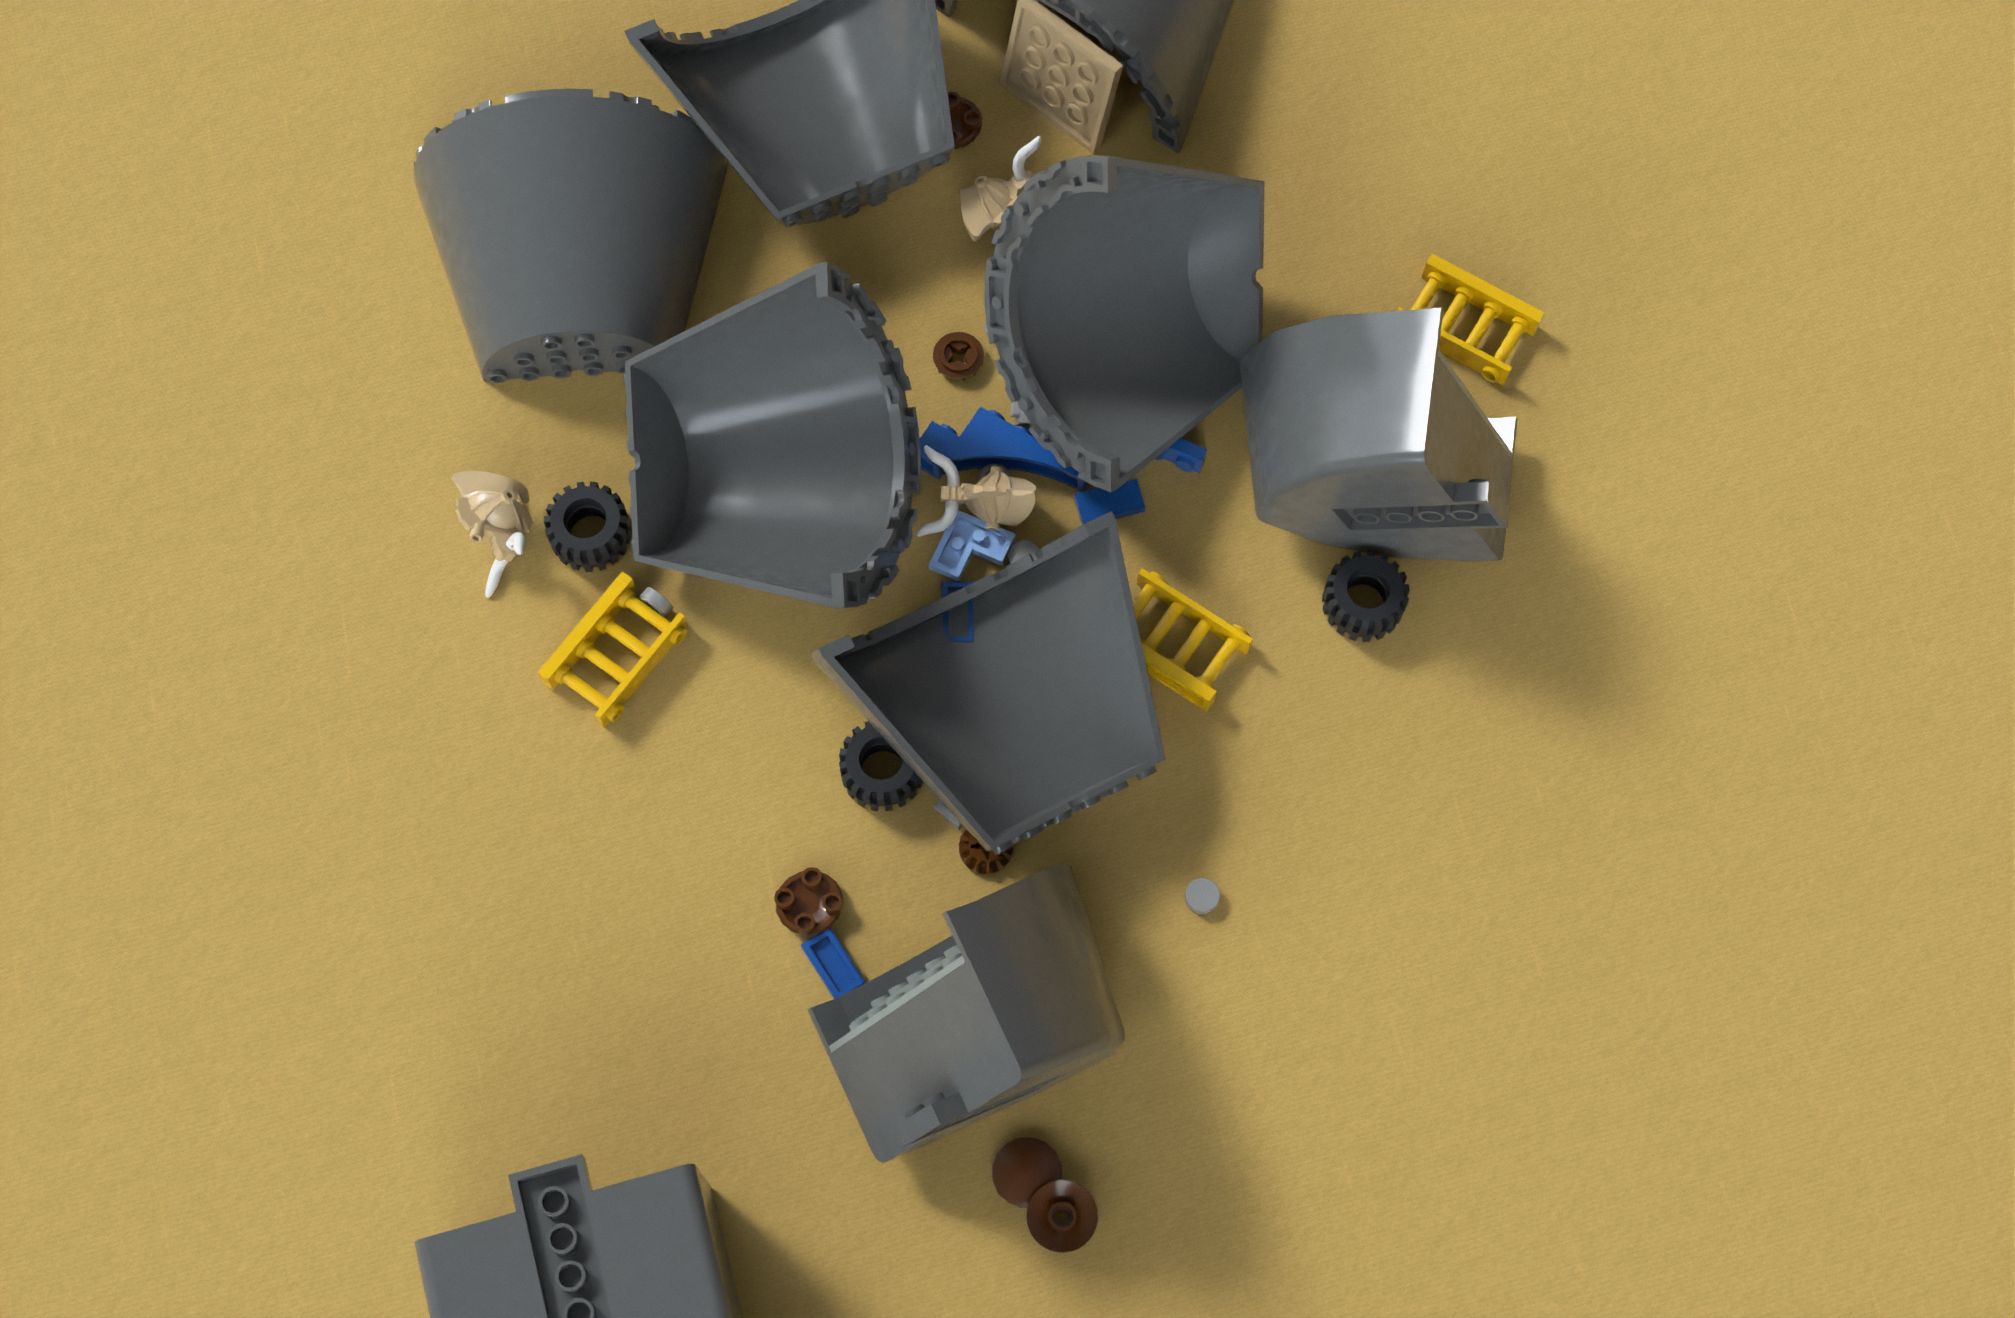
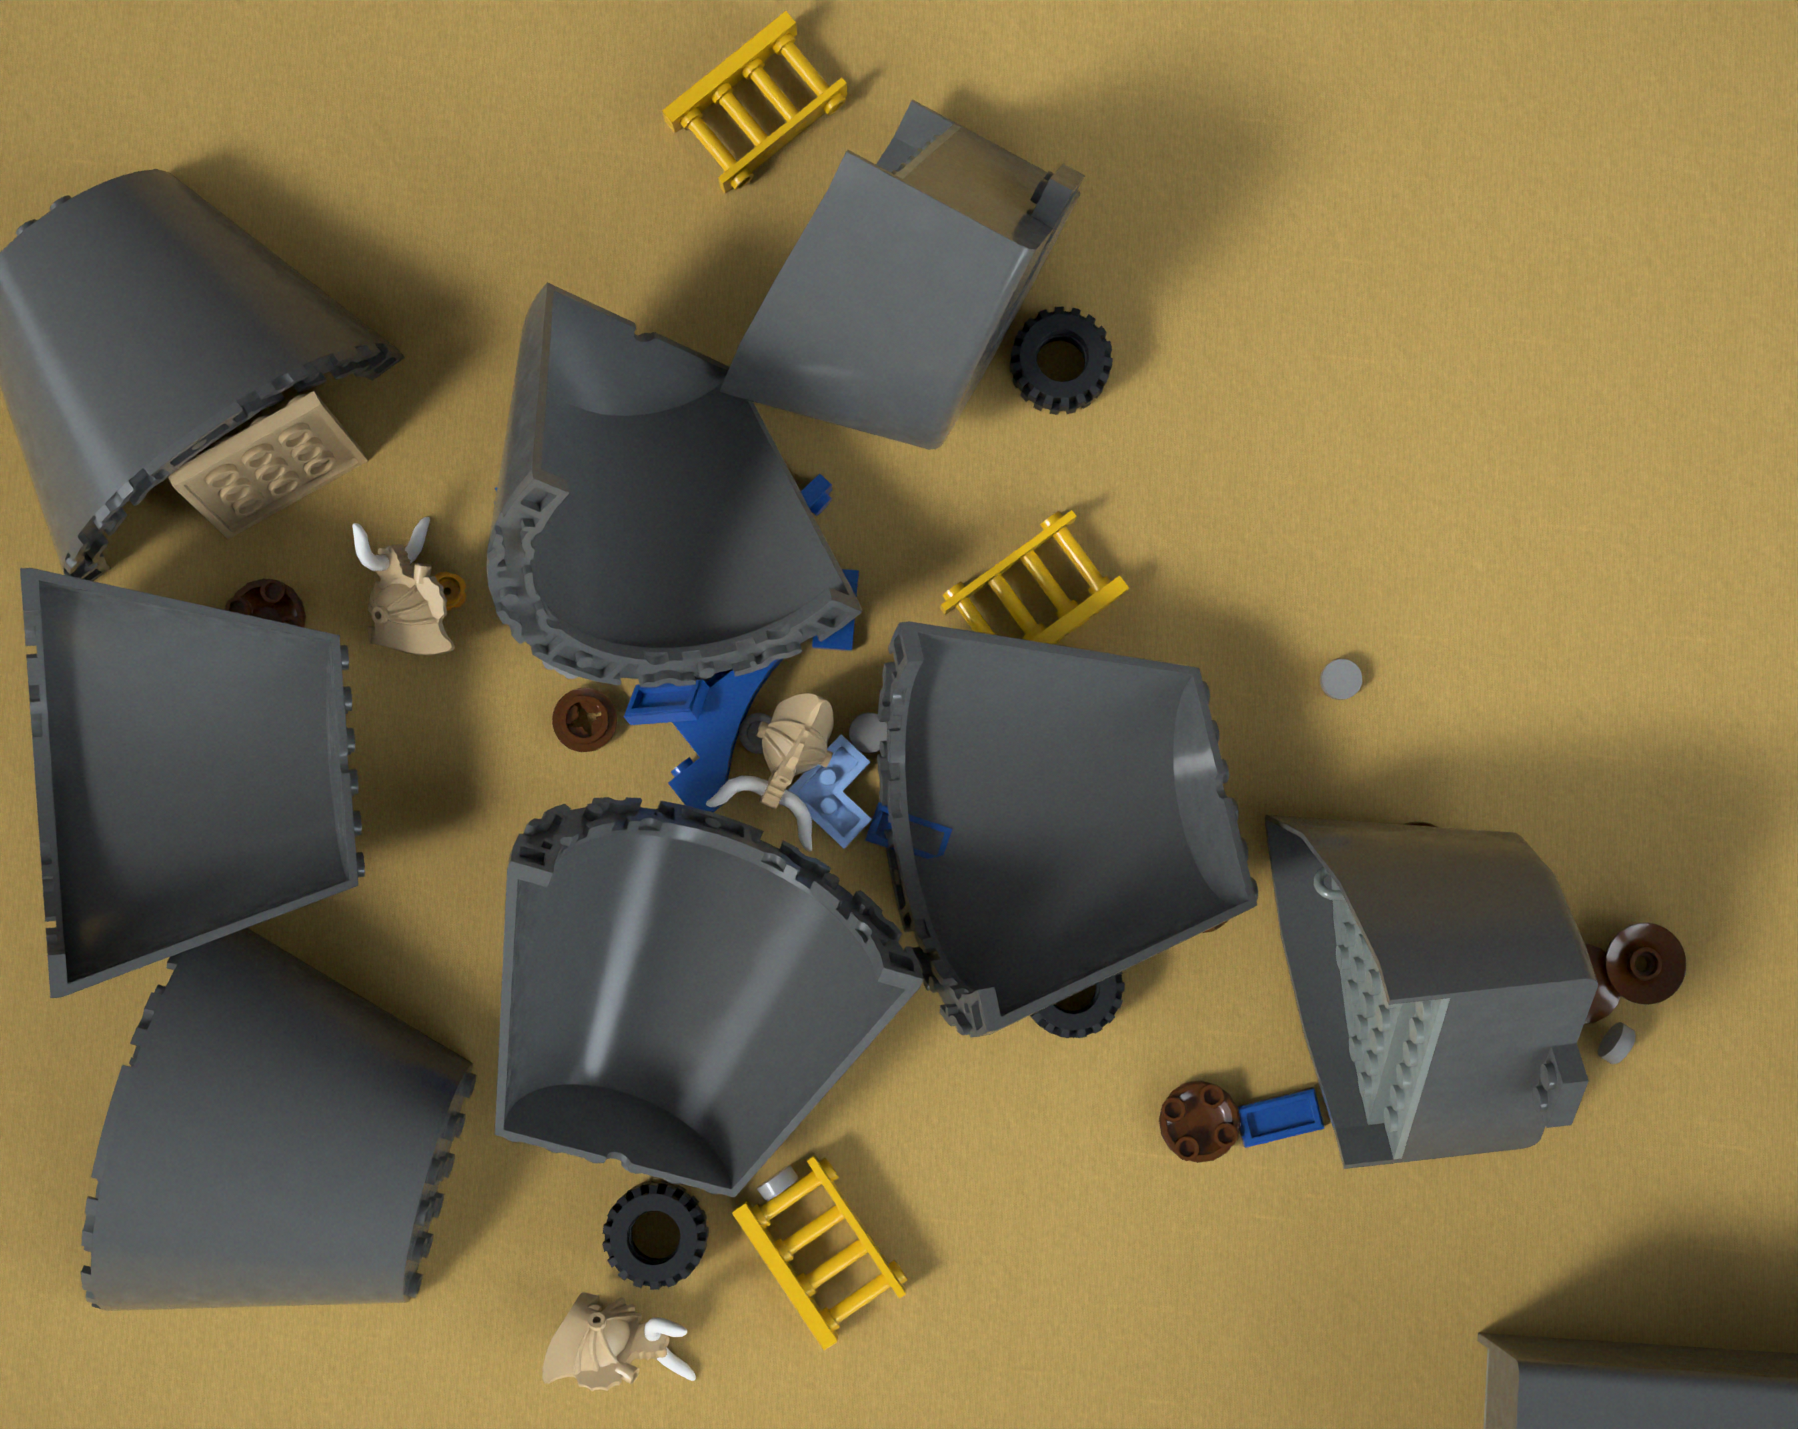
camera: 70 degrees left, 15 degrees up
(987, 1216) = (1617, 1043): none -> light grey tile
(992, 401) = (666, 703): none -> blue tile

